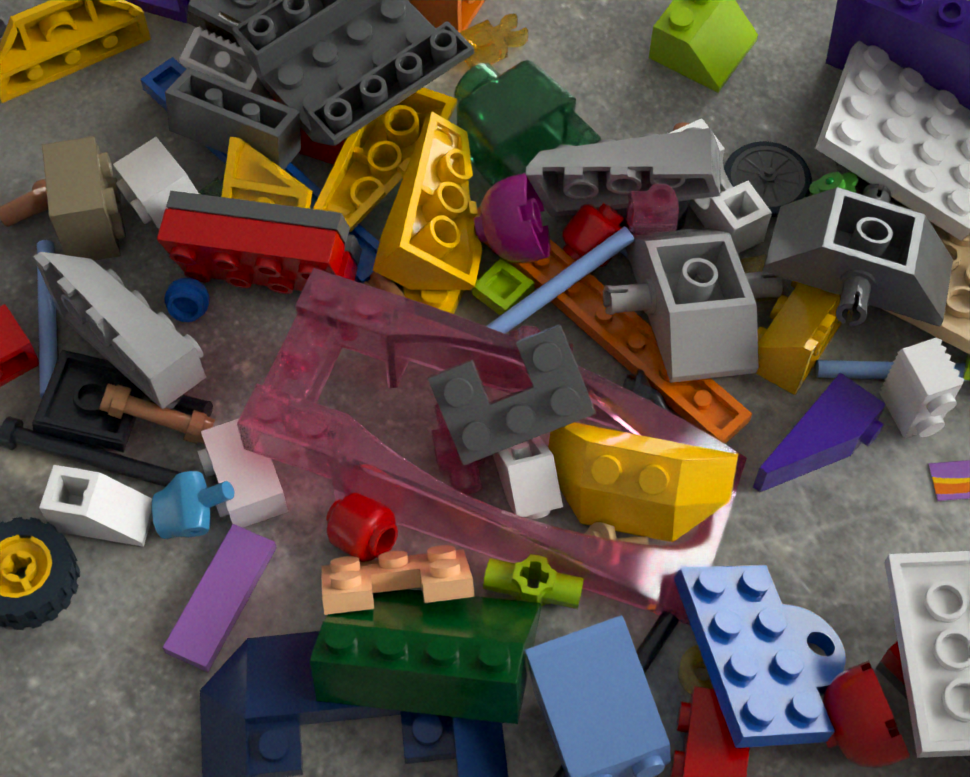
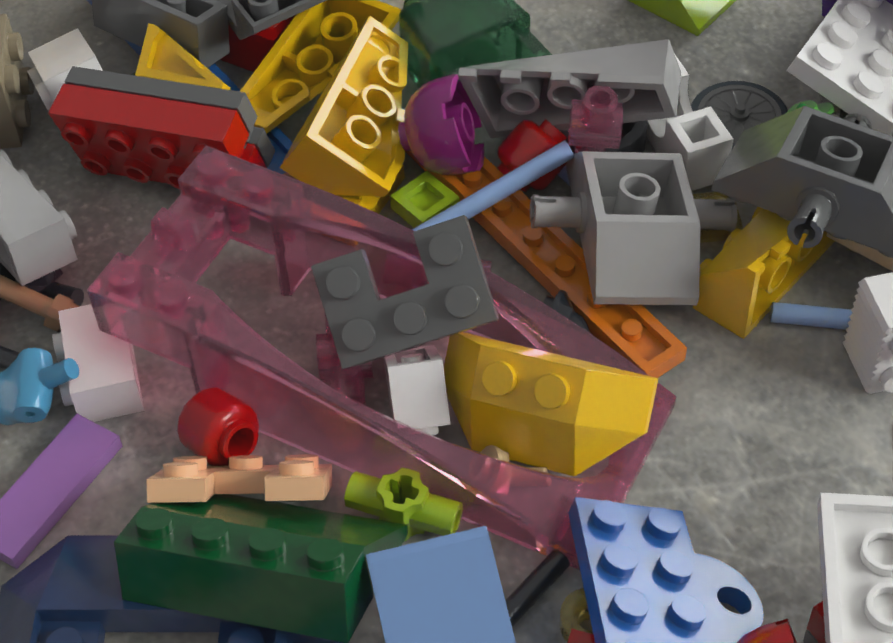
camera: 10 degrees right, 10 degrees down
(186, 299) = (78, 188): blue plate -> none
(825, 434) = (767, 377): dark purple slope -> none

